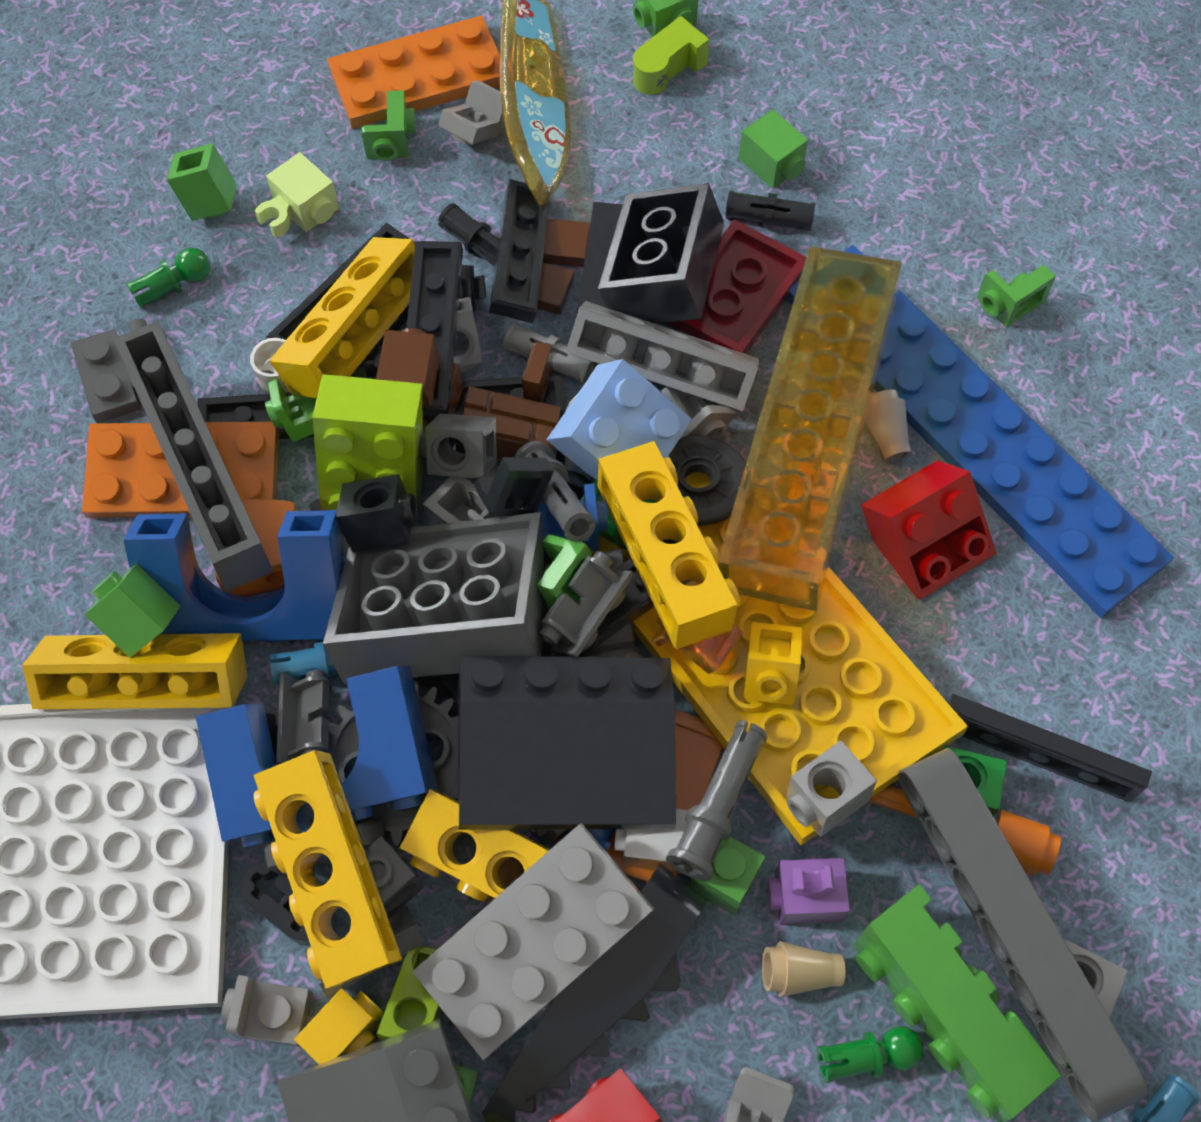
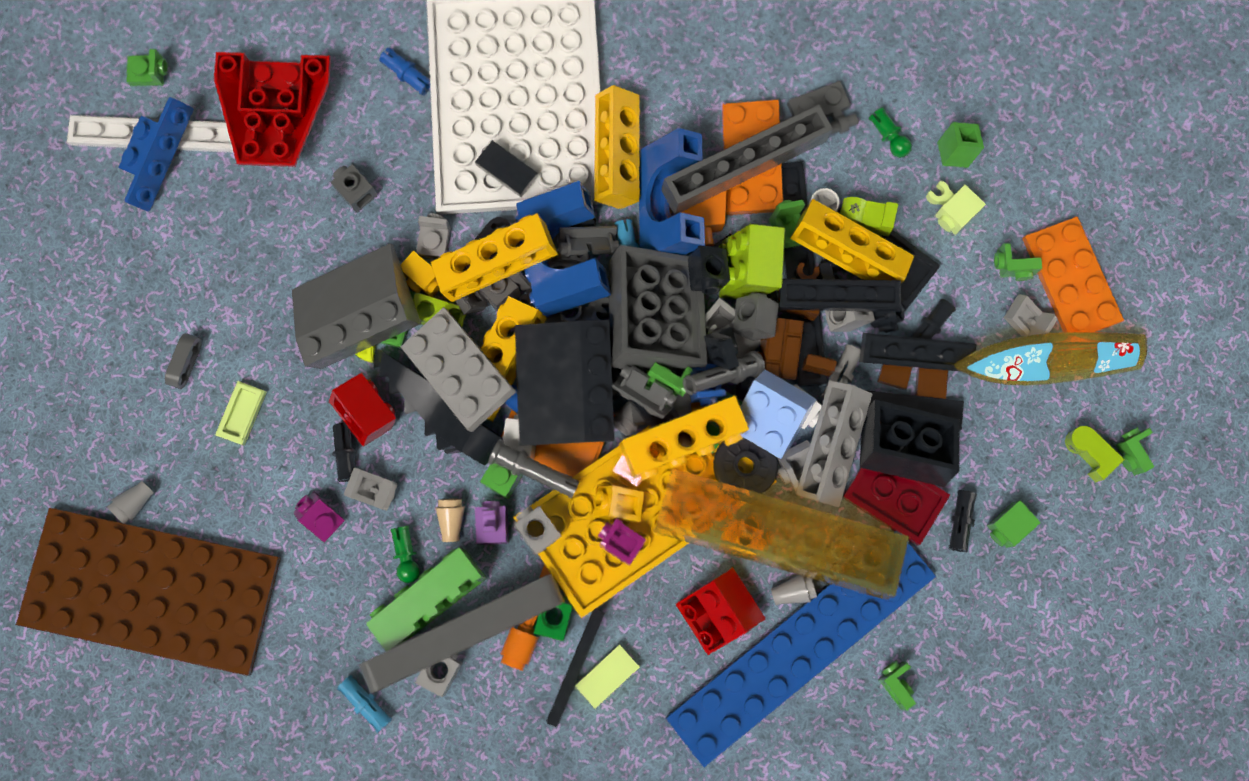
camera: 90 degrees right, 15 degrees up
(131, 609) = (643, 138): bright green brick -> none
(150, 865) = (506, 168): none -> black tile
(303, 287) = (871, 215): none -> lime leg
(411, 358) = (801, 280): reddish brown brick -> none
(837, 656) = (620, 541): none -> magenta bracket
(1047, 699) = (607, 676): none -> yellowish green tile

